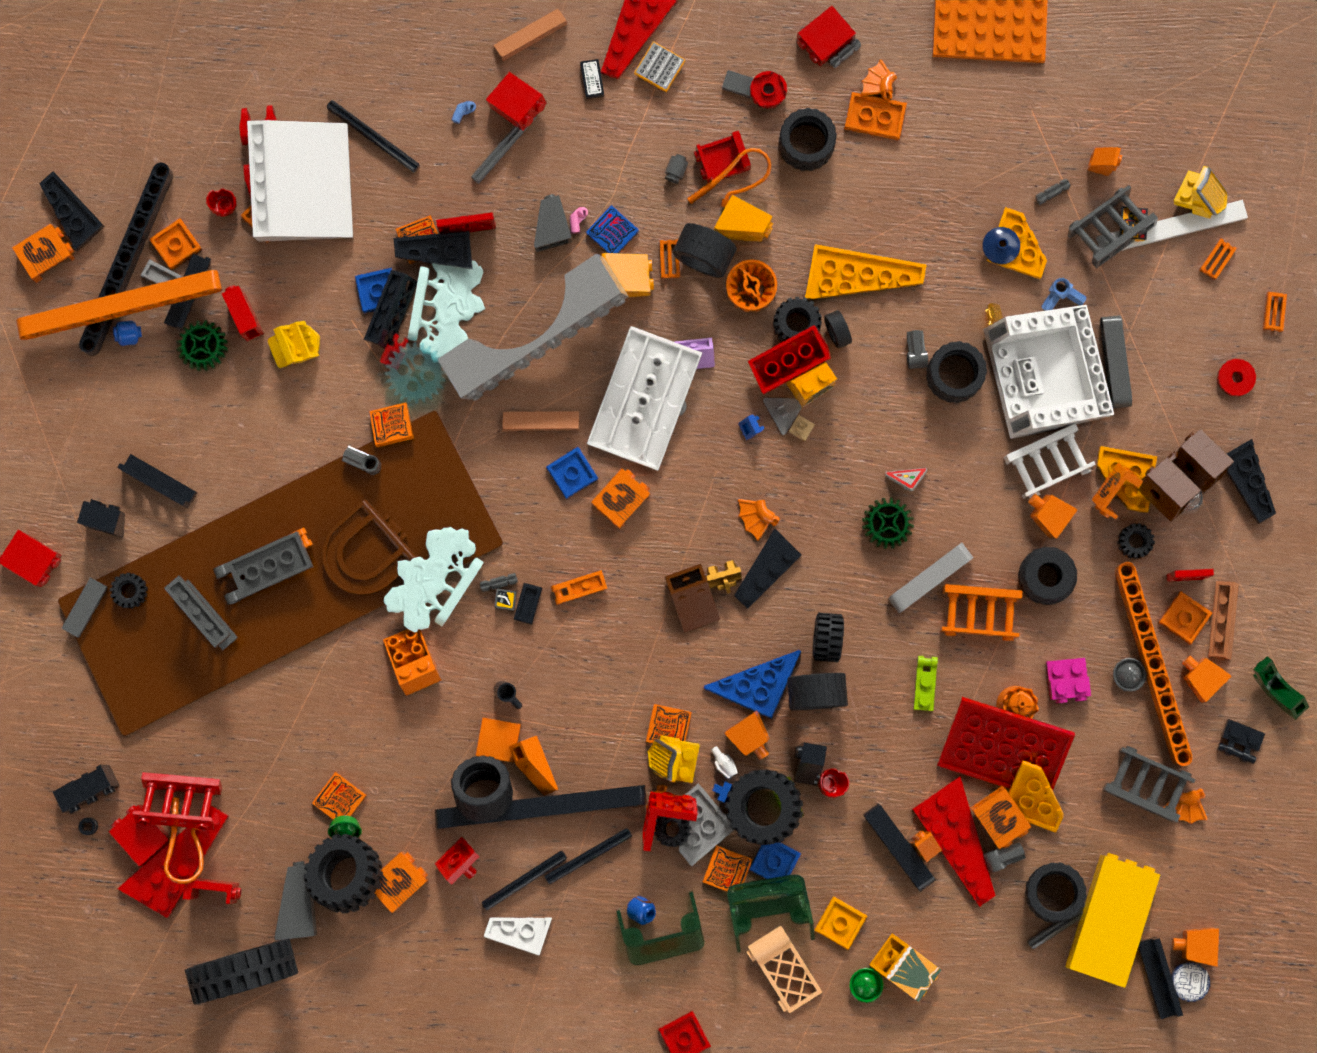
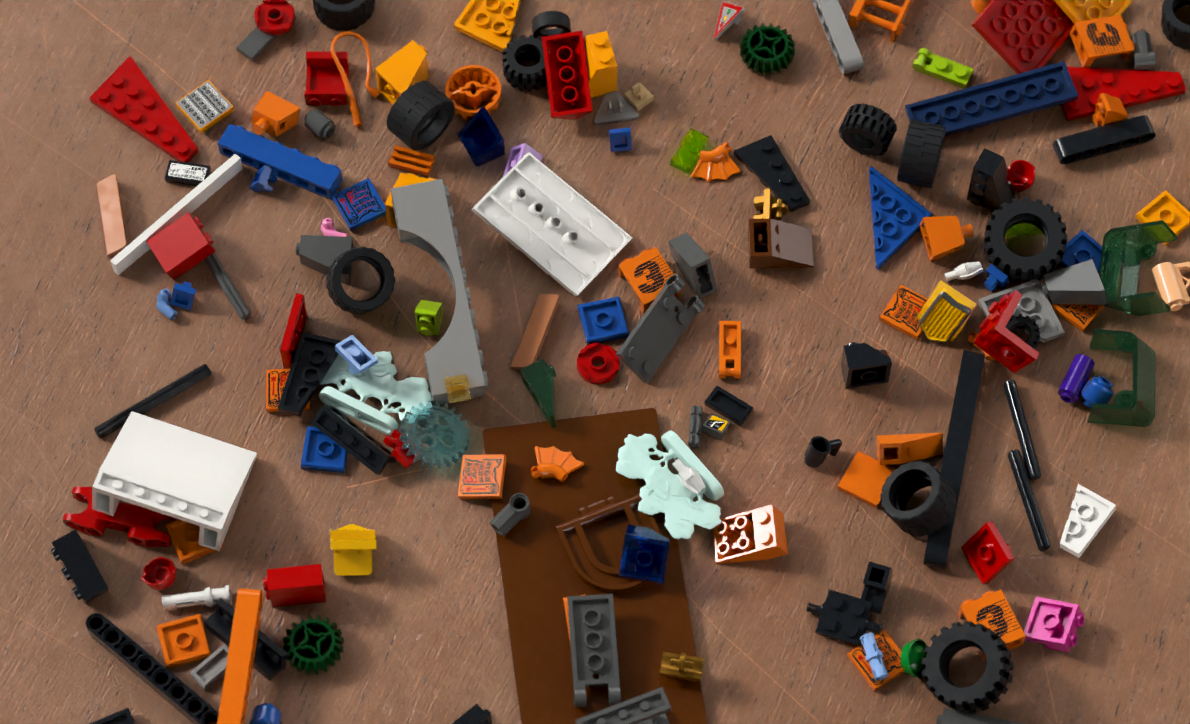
camera: 70 degrees left, 20 degrees down
(204, 137) = (78, 567): none -> black wedge
(216, 248) = (207, 597): none -> white pin
(272, 643) = (681, 666): none -> pearl gold hips
(335, 794) = (874, 656): none -> light blue pin
(357, 579) = (644, 554): none -> clear blue slope
(364, 759) = (844, 617): none -> black plate
(395, 777) = (877, 585): none -> black brick
(414, 932) = (1054, 624): none -> dark pink plate
(422, 479) = (554, 463): none -> orange arm
(440, 593) = (689, 477): none -> white piece
(448, 376) = (457, 388): none -> clear yellow slope
(459, 282) = (355, 355): none -> medium blue slope
(474, 122) = (183, 295): none -> blue tile
(487, 445) = (541, 385): none -> clear green slope
(510, 270) = (383, 268): none -> black tyre
(520, 328) = (428, 317): none -> lime slope
(525, 472) = (594, 374): none -> red tile
(548, 86) = (187, 204): none -> white tile
(573, 522) = (659, 330): none -> dark grey hinge
(598, 706) = (864, 365): none -> black slope
(605, 141) = (261, 179): none -> blue tile
(627, 150) = (285, 162): none -> blue brick
(647, 529) = (693, 264): none -> dark grey slope
(649, 888) = (1076, 378): none -> dark purple brick
(667, 127) = (274, 115): none -> orange torso
(709, 310) = (482, 138): none -> clear blue slope
(735, 863) = (1075, 285): none -> dark grey slope
(762, 489) = (689, 150): none -> clear neon green slope
(901, 737) = (997, 99): none -> dark blue plate

